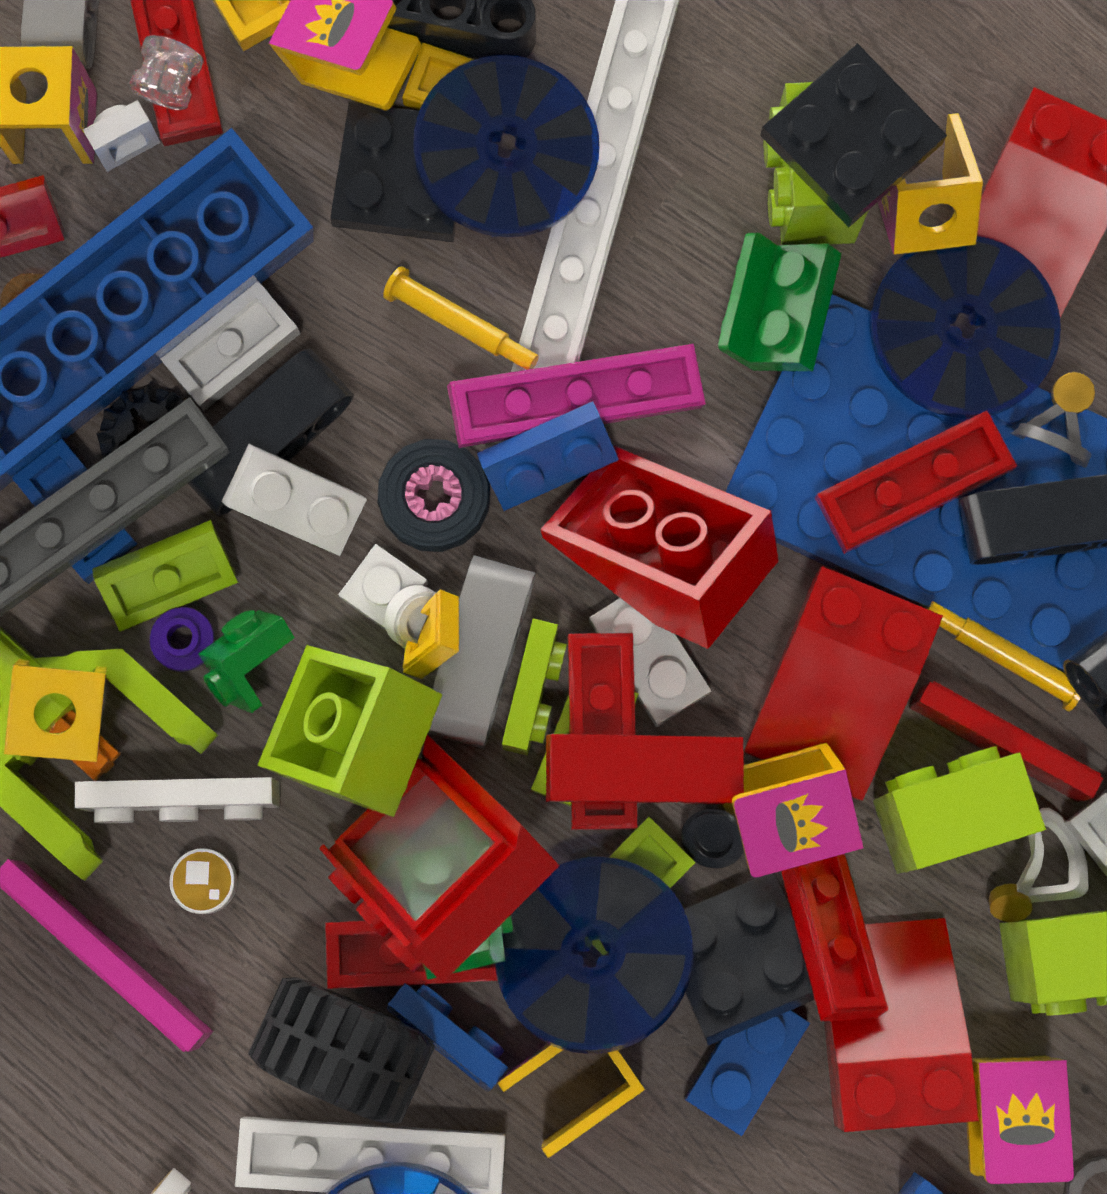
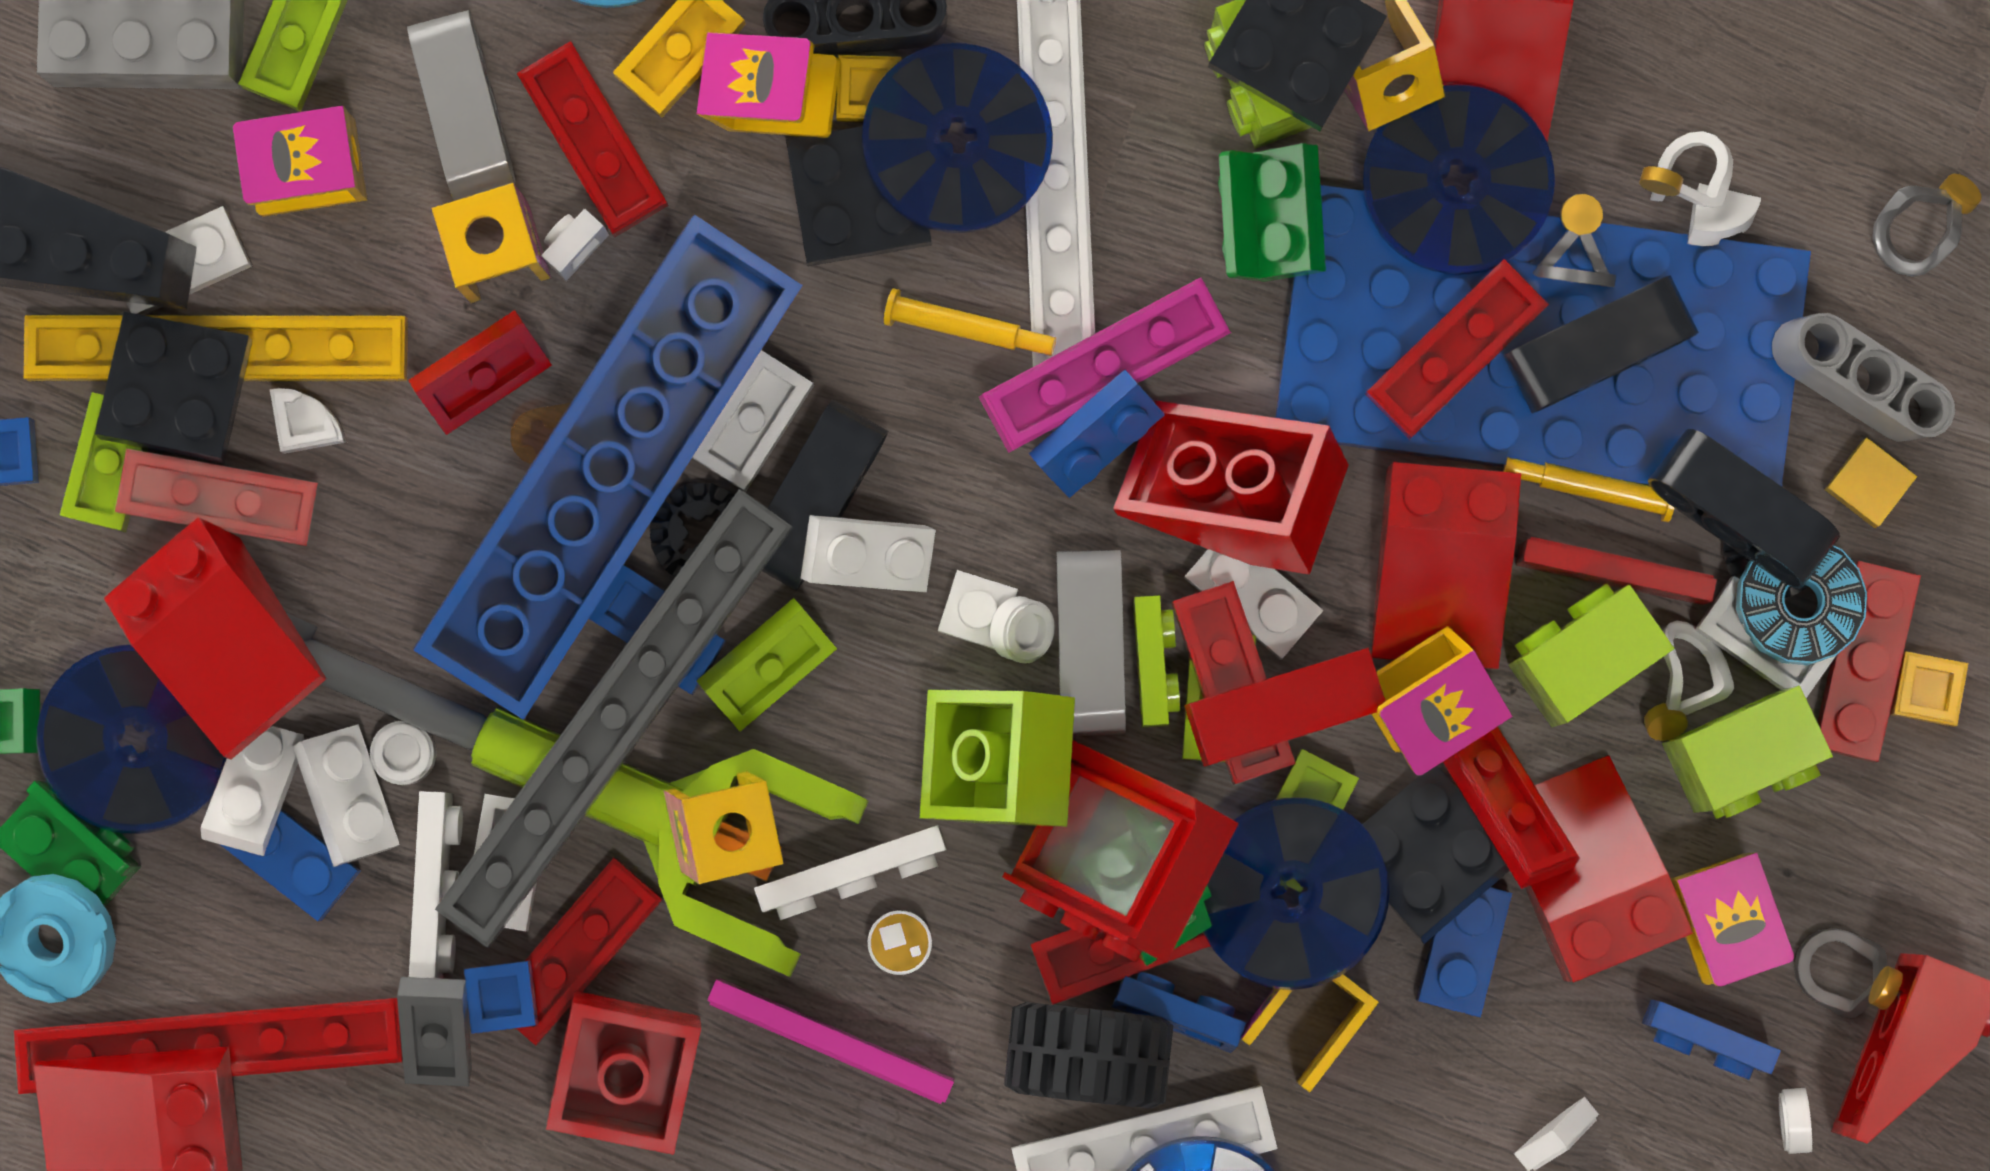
camera: 15 degrees left, 5 degrees up
(161, 633) = (822, 725): dark purple plate -> none
(166, 72) = (601, 171): clear wheel -> none
(245, 644) = (865, 712): green bracket -> none
(416, 469) = (1019, 480): black bush -> none
(437, 638) = (1049, 643): yellow tile -> none
(712, 835) = (1367, 747): black tile -> none

